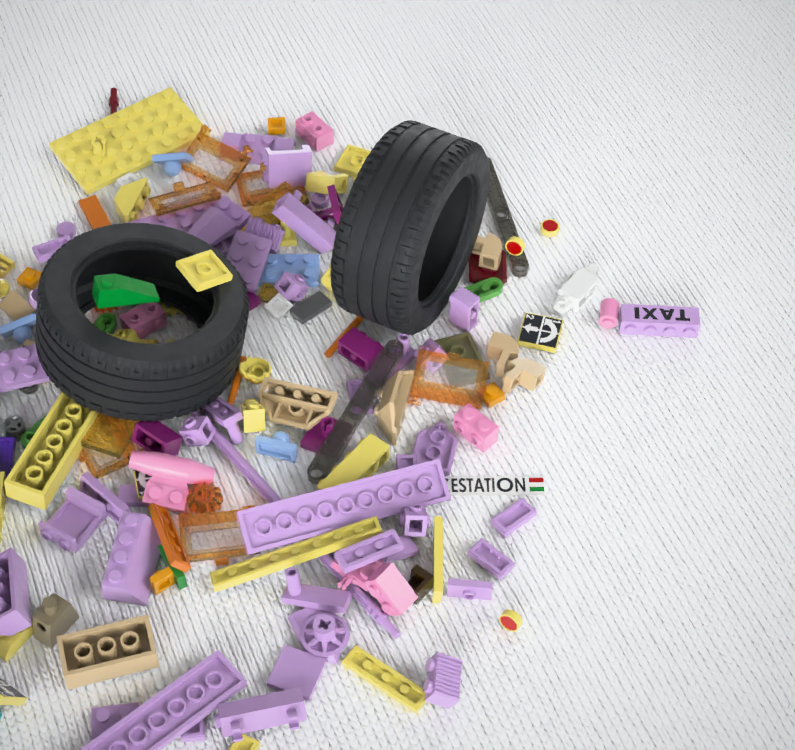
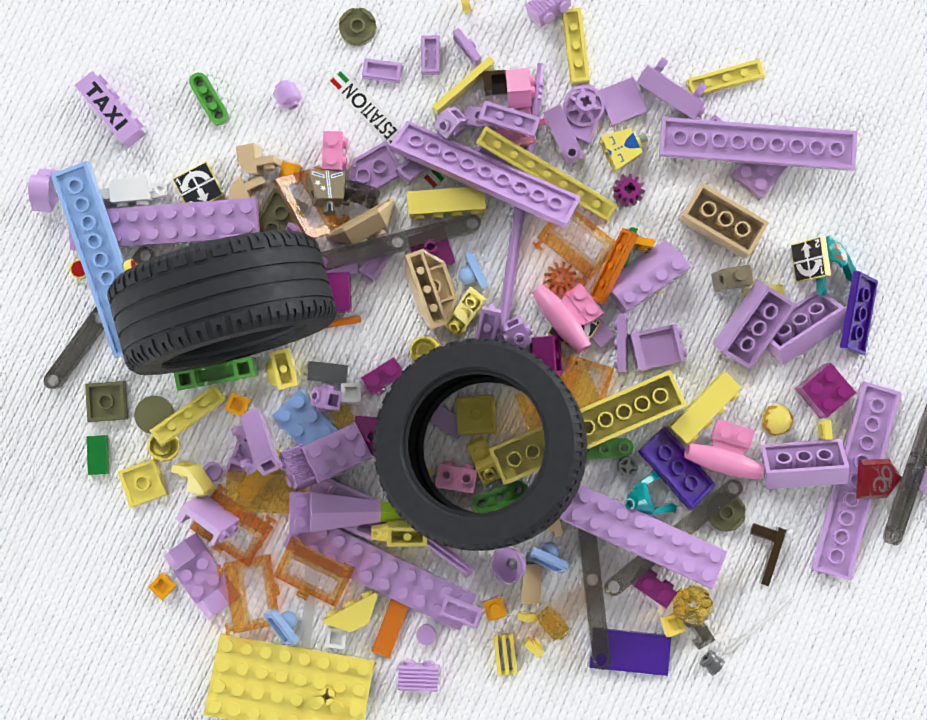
camera: 130 degrees left, 35 degrees up
(46, 204) = (418, 676): none -> lavender brick
(119, 290) = (497, 445): green slope -> none
(204, 270) = (411, 424): light yellow tile -> none
(216, 607) = (636, 189): none -> magenta gear
(257, 633) = (622, 148): none -> light yellow torso
(267, 331) = (382, 376): none -> magenta brick
(314, 131) = (142, 547): bright pink brick -> none
(336, 206) = (221, 438): magenta tile -> none
(422, 419) = (361, 194): none -> clear smoke leg
(448, 396) = (326, 189): none -> dark tan torso
(528, 290) = (182, 222): none -> lavender plate
(556, 434) = (287, 95): none -> lavender head
(558, 238) = (92, 238): none -> light blue plate
(571, 529) = (357, 26): none -> olive tile
(597, 384) = (207, 91): none -> bright green plate
(609, 313) = (136, 150): bright pink brick -> none
(633, 239) = (42, 191): none -> lavender brick

